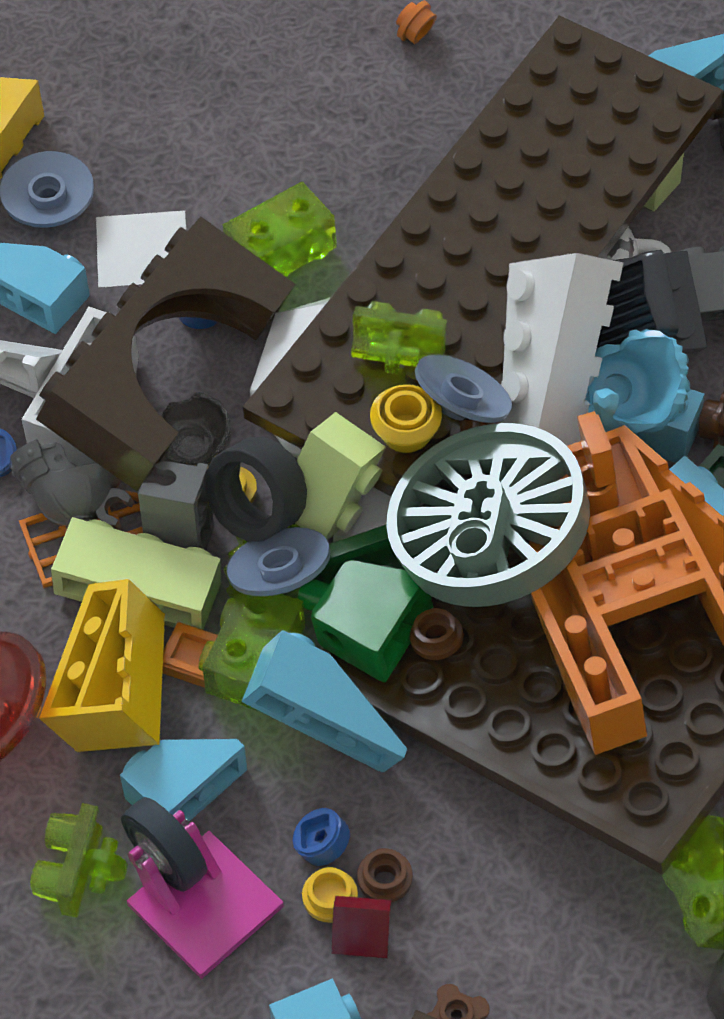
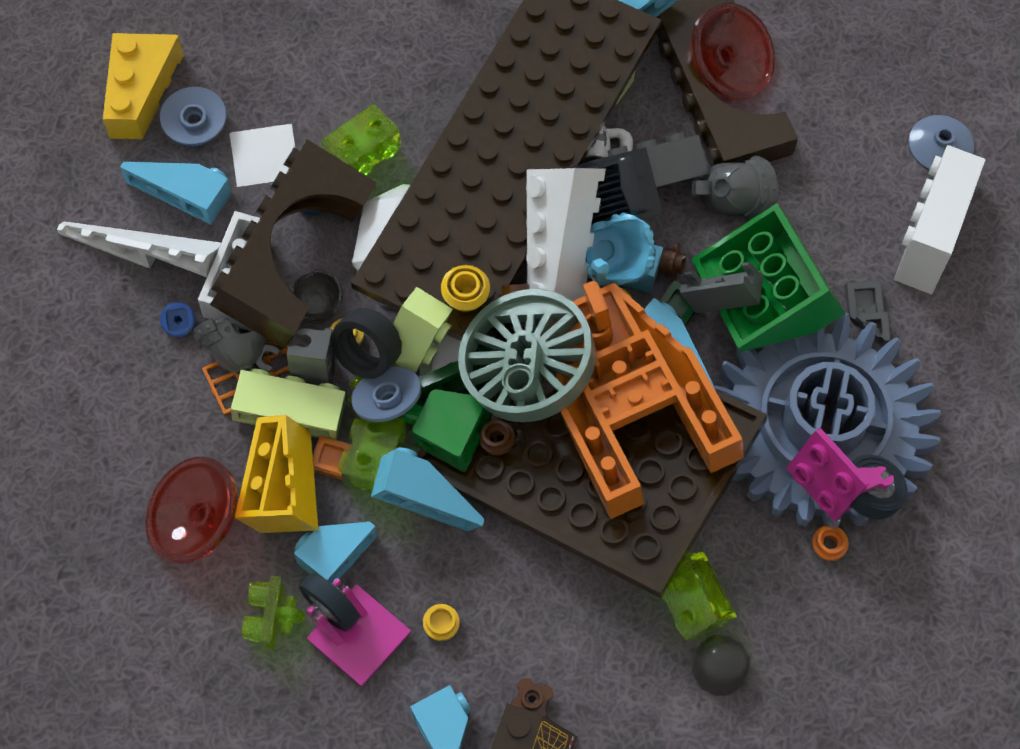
camera: 10 degrees left, 10 degrees up
(321, 836) = (431, 582): blue tile -> none
(361, 926) = (464, 644): dark red tile -> none
(385, 861) = (472, 595): reddish brown plate -> none
(395, 336) = (455, 228): clear neon green hips -> none
(462, 389) = (502, 264): sand blue dish -> none

